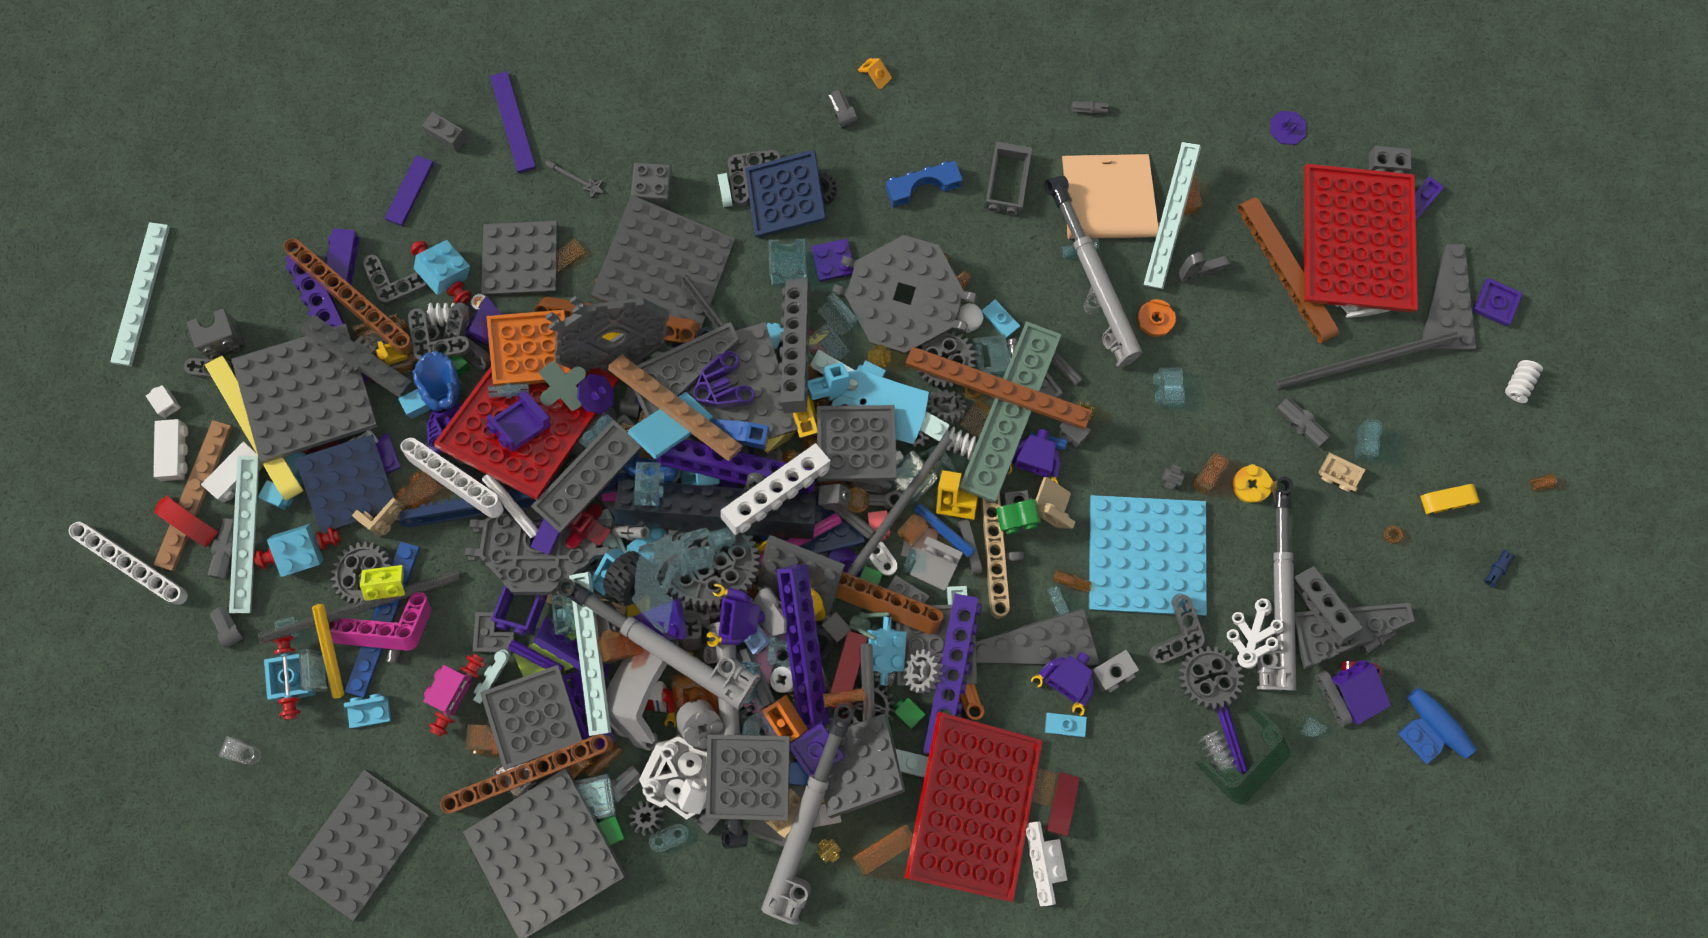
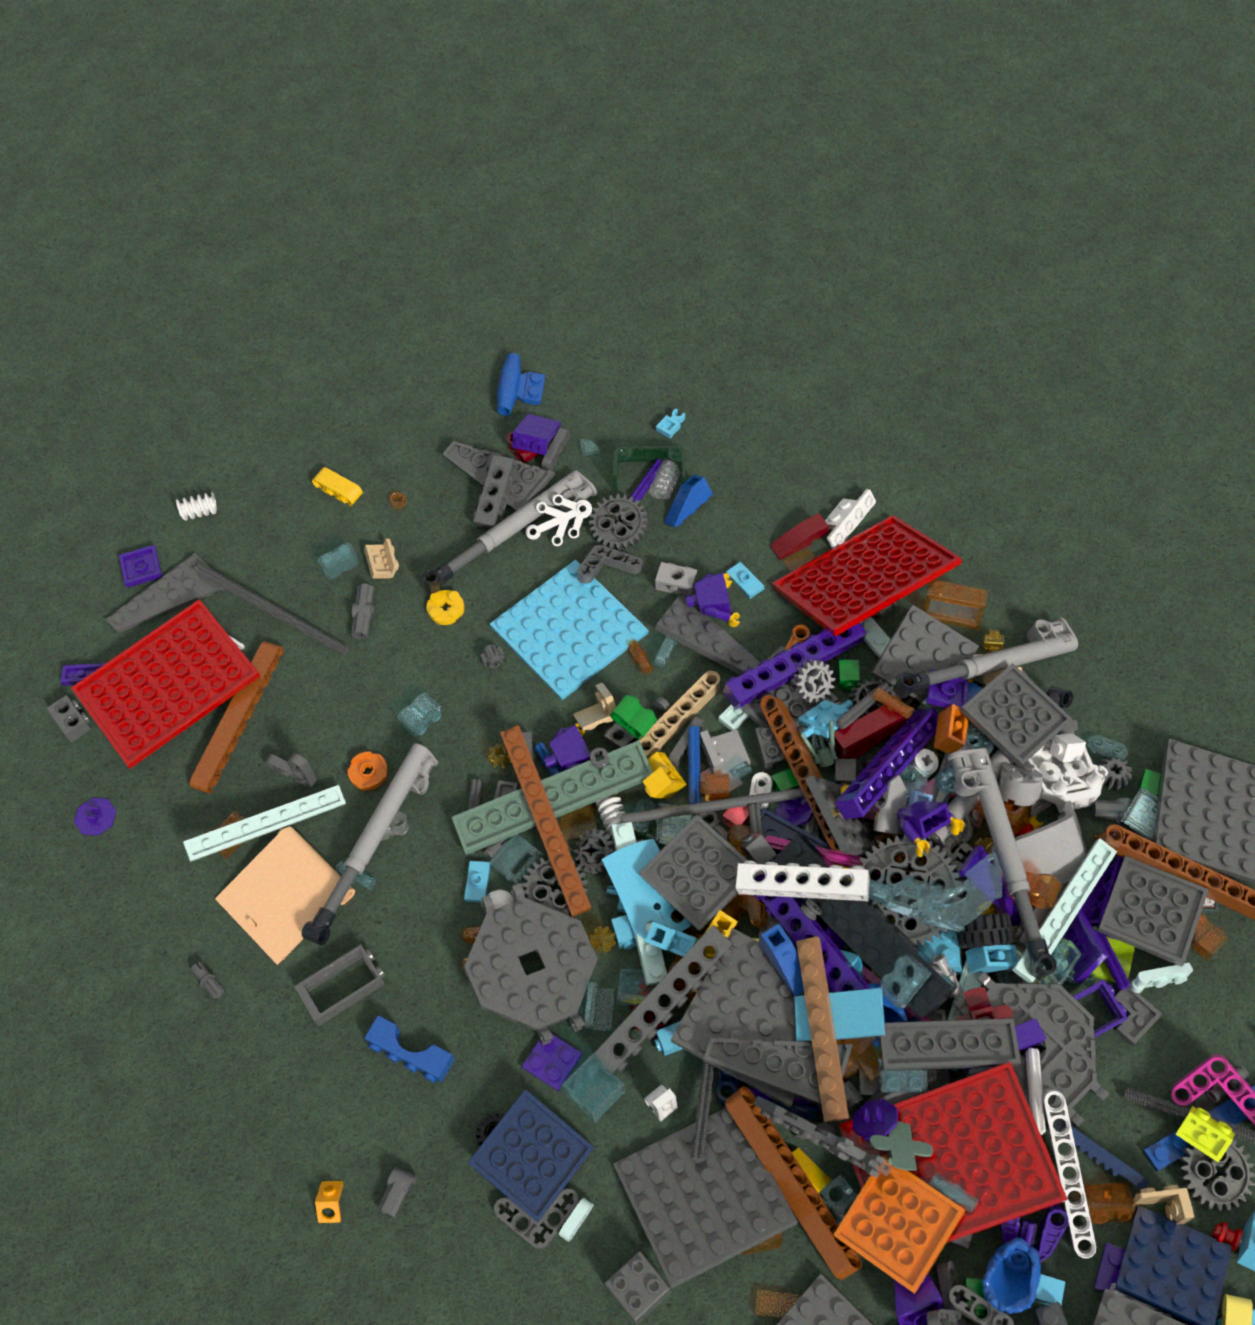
camera: 125 degrees left, 15 degrees down
(449, 691) = (1208, 995): dark pink brick -> none
(518, 422) = (971, 1149): dark purple panel -> none
(714, 371) = (767, 999): dark purple connector -> none
(741, 294) = (662, 1102): none -> white plate
(1009, 455) = (602, 763): none -> dark grey bush
(1181, 752) = (689, 497): none -> blue slope
(1210, 473) = (463, 635): clear orange brick -> none
(1274, 814) = (670, 425): none -> medium azure plate
(1499, 568) = (362, 427): dark blue pin -> none
(1543, 482) = (266, 444): clear orange pin -> none

